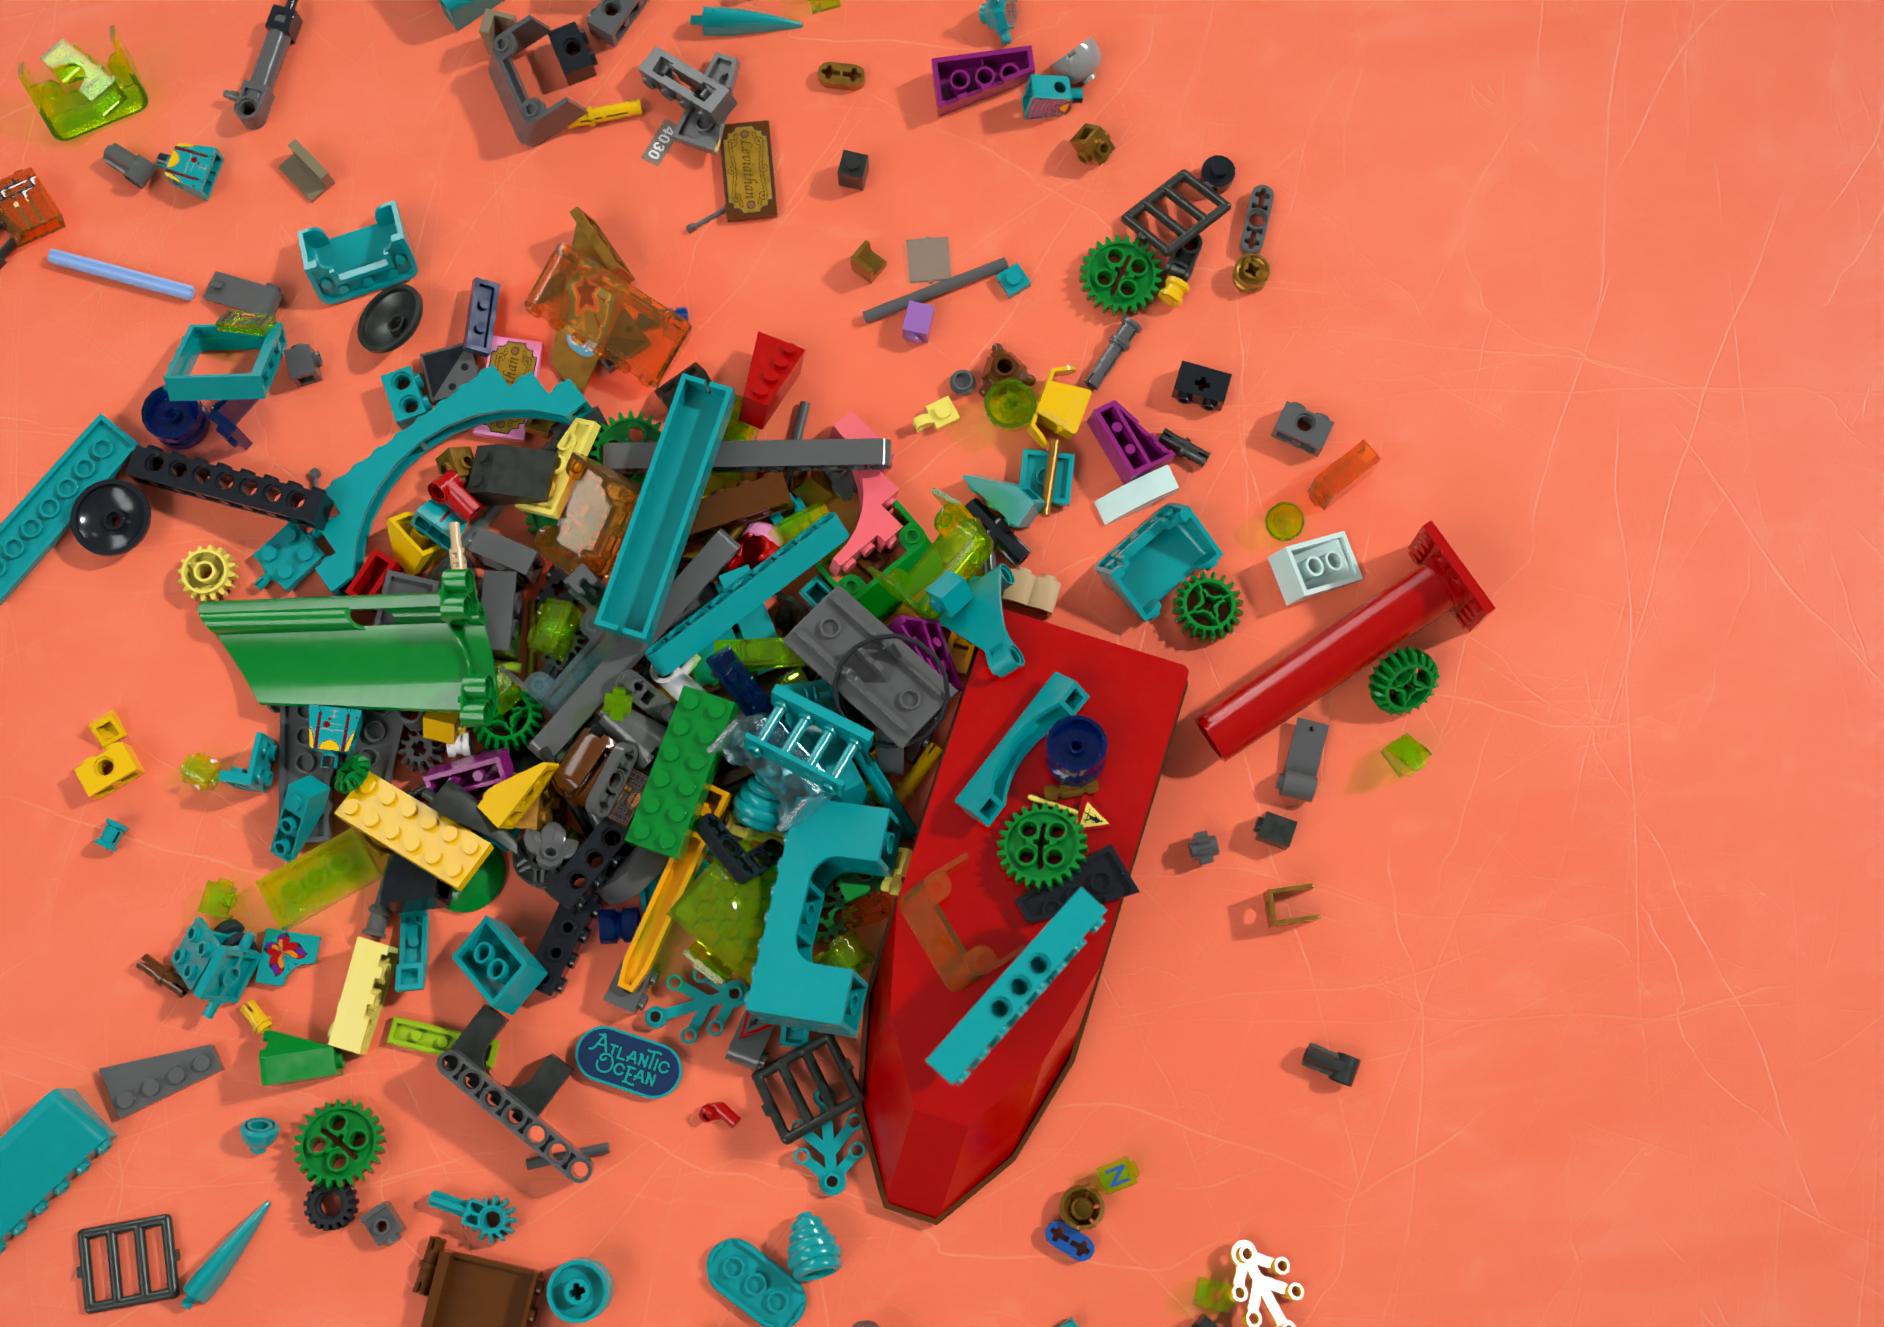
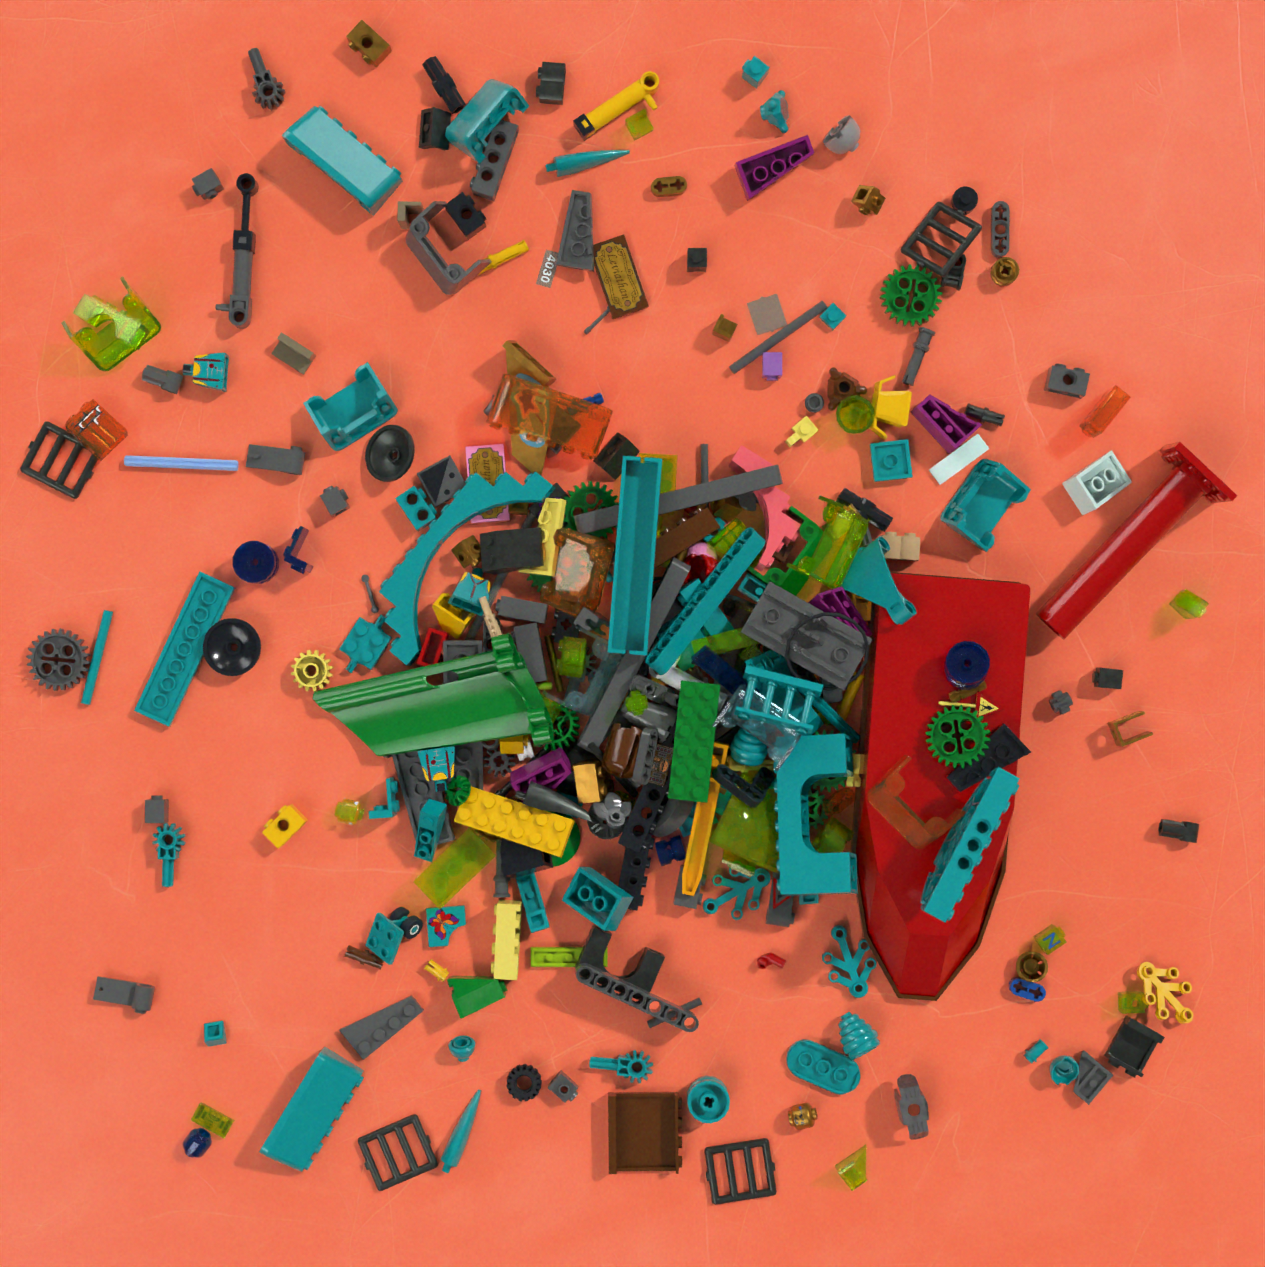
camera: 15 degrees left, 10 degrees up
(107, 728) = (272, 795): yellow slope -> none
(111, 834) = (299, 870): teal bush -> none
(146, 462) = (243, 605): black brick -> none
(206, 337) = (274, 493): teal window -> none
(218, 898) = (388, 896): clear neon green brick -> none
(227, 974) = (411, 948): teal plate -> none
(246, 322) = (287, 481): clear neon green tile -> none
(321, 1164) = (511, 1058): green gear -> none
(428, 1265) = (601, 1106): reddish brown pin -> none
(449, 490) = (471, 574): red piece -> none
(481, 317) = (454, 435): dark blue plate -> none
(511, 798) = (578, 785): yellow slope -> none
(629, 1062) = (700, 940): tile -> none
(658, 74) = (585, 238): dark grey brick -> none
(770, 377) = (676, 433): red wedge -> none
(834, 1110) = (835, 954): pearl dark grey bar -> none
(854, 891) = (828, 791): green slope -> none
(949, 594) = (847, 568): teal brick -> none
(988, 789) = (942, 637): teal arch -> none
(1012, 500) = (871, 484): teal slope -> none
(1048, 96) = (827, 169): teal torso -> none
(1050, 477) = (894, 461): pearl gold bar -> none
(1173, 291) = (952, 299): yellow wheel -> none
(1203, 596) = (1021, 522): green gear -> none
(1214, 383) = (997, 362): black brick -> none
(1284, 521) = (1068, 454): clear neon green hair -> none
(1303, 761) = (1116, 633): dark grey door -> none
(1400, 675) = (1177, 552): green gear -> none

